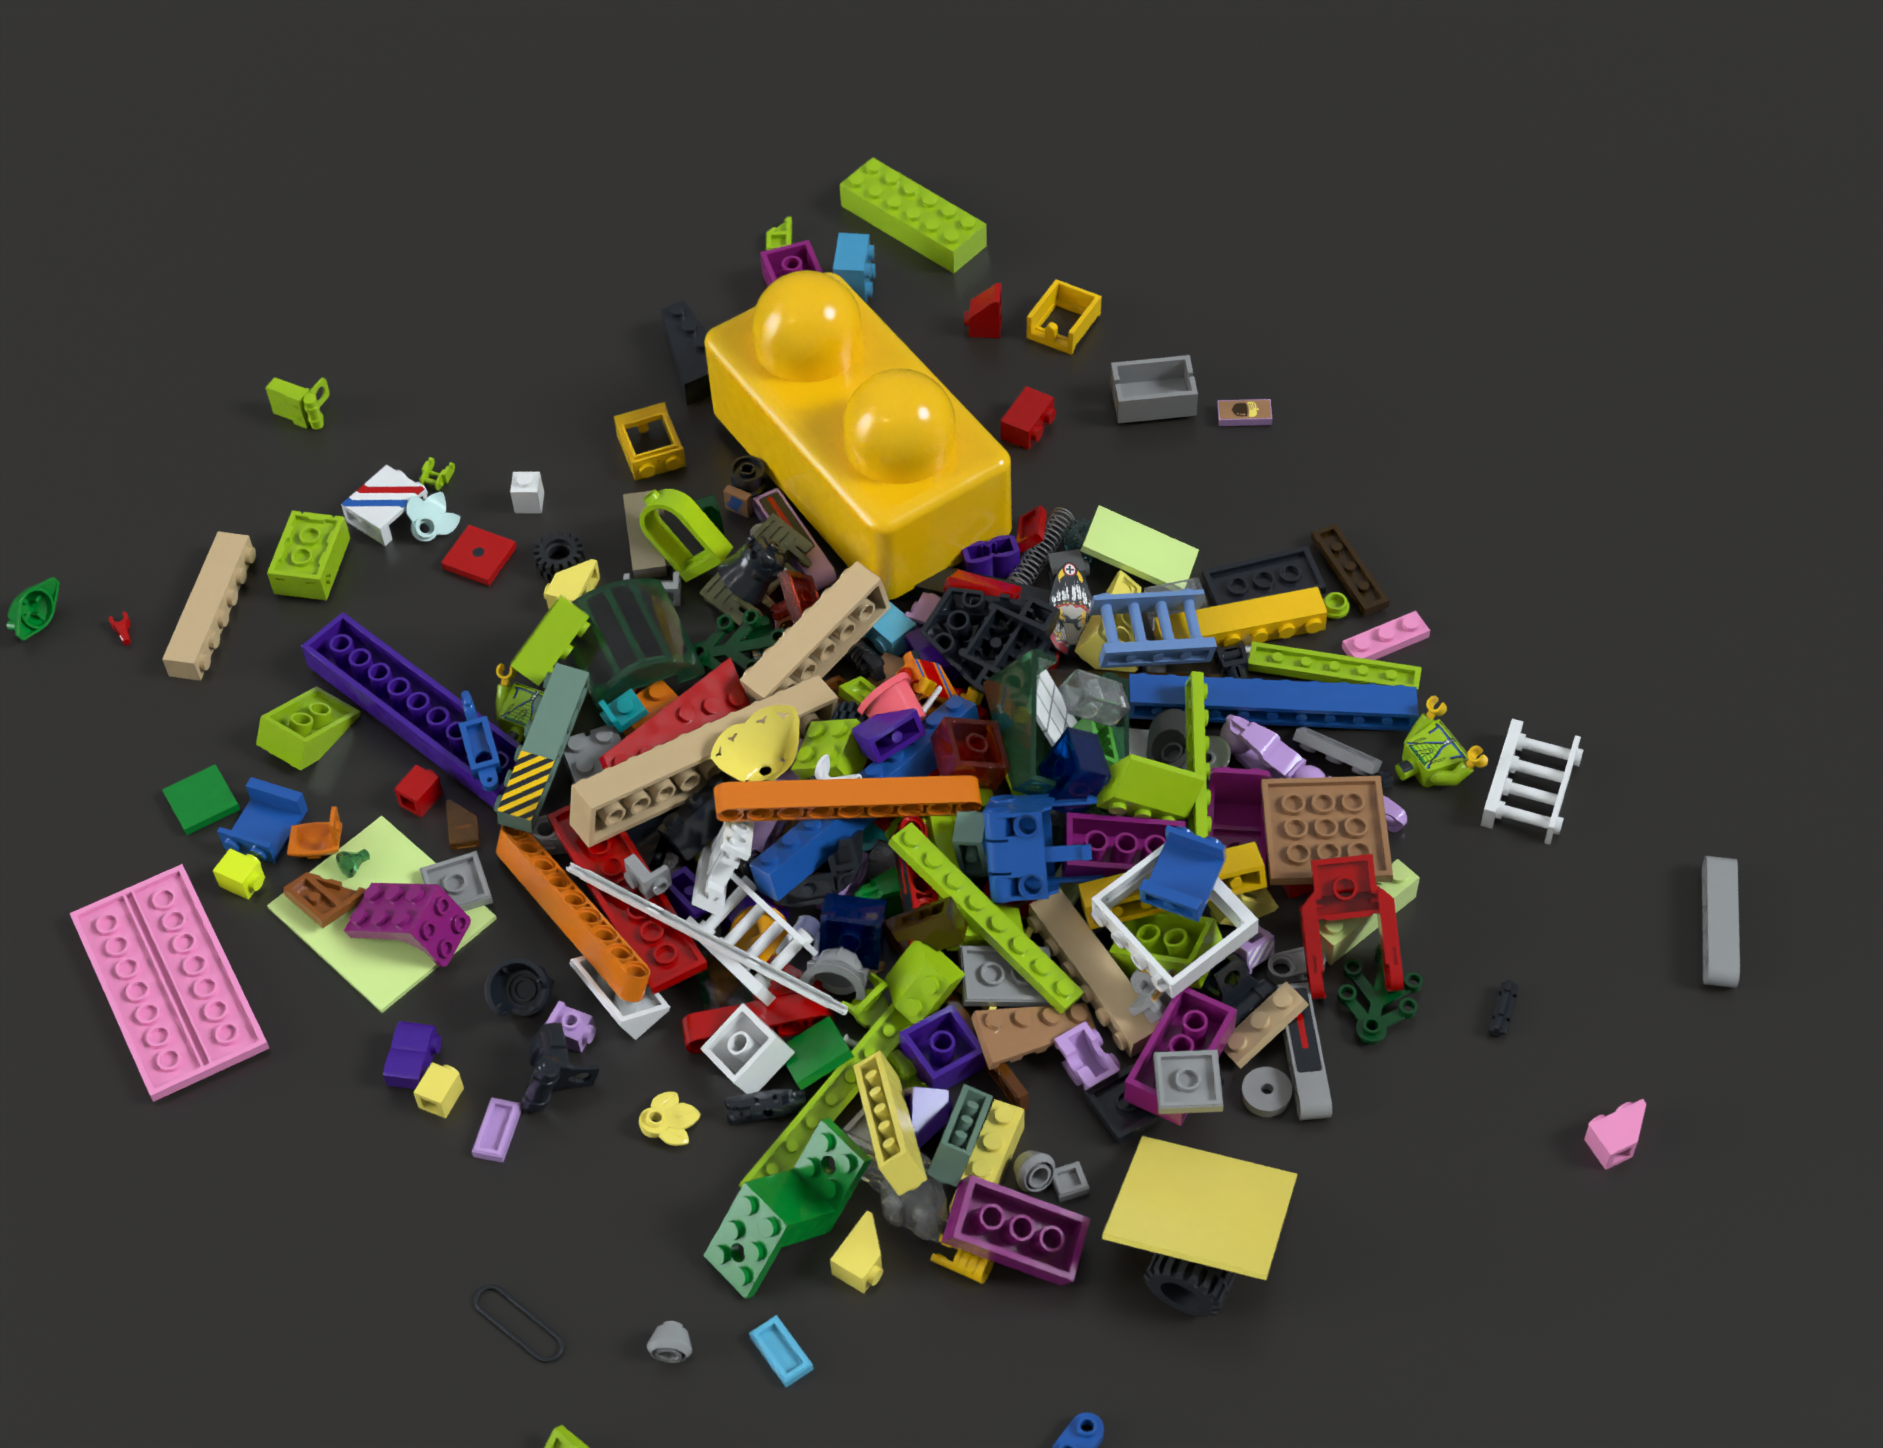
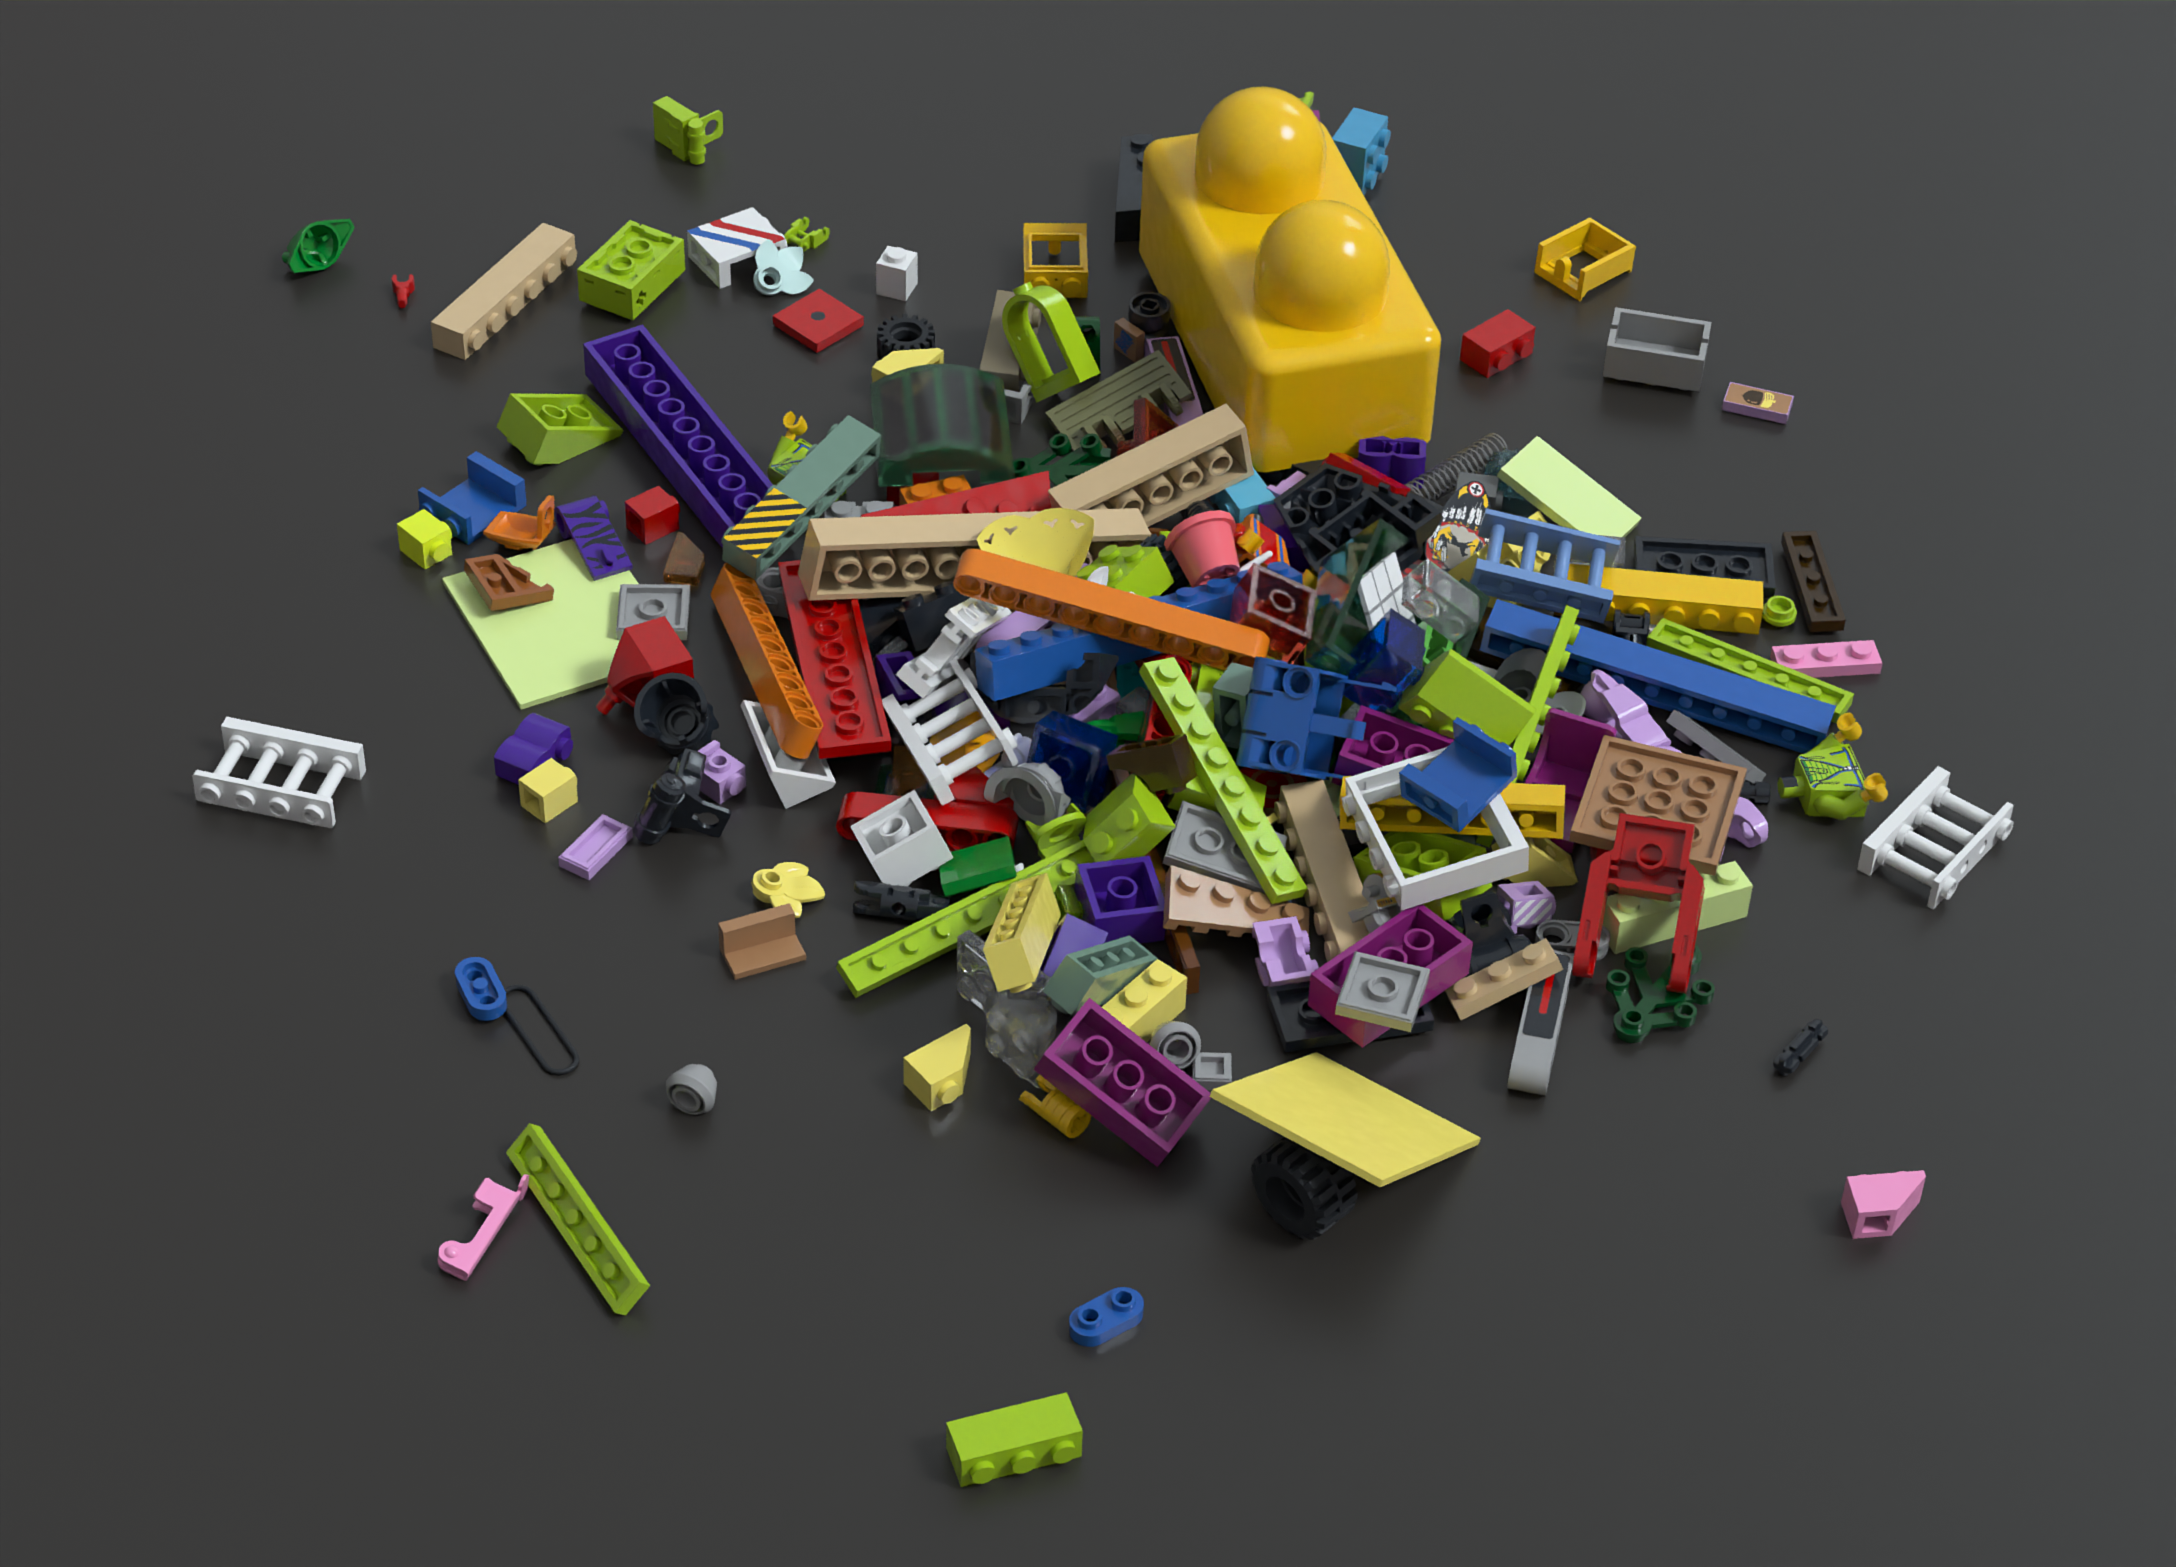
camera: 15 degrees right, 10 degrees down
(168, 982) = (305, 617): bright pink plate -> none
(201, 799) = (415, 464): green tile -> none
(204, 1118) = (285, 747): none -> white fence
(350, 861) = (548, 559): clear green rock -> none
(378, 827) = (593, 535): none -> dark purple door
(411, 914) = (585, 614): magenta bracket -> none
(460, 1304) = (480, 988): none -> blue plate
(476, 947) = (641, 655): none -> red piece
(477, 741) = (733, 470): blue piece -> none
(551, 640) = (855, 395): lime slope -> none
(623, 711) = (905, 488): teal bracket -> none
(647, 883) = (859, 646): light grey bracket -> none
(668, 1181) = (760, 941): none -> medium nougat panel
(708, 939) = (902, 717): white piece -> none
(753, 568) = (1110, 394): black hat -> none
(781, 1351) = (813, 1135): medium azure tile -> none
(787, 1207) = (877, 993): green bracket -> none
(888, 733) = (1187, 568): dark purple slope -> none
(913, 215) = (1454, 122): lime brick -> none
(985, 313) = (1494, 233): red slope -> none
(1031, 528) = (1451, 445): red tile -> none
(1266, 1104) = (1471, 1061): light grey piece -> none
(1720, 922) = (2104, 1033): light grey beam -> none

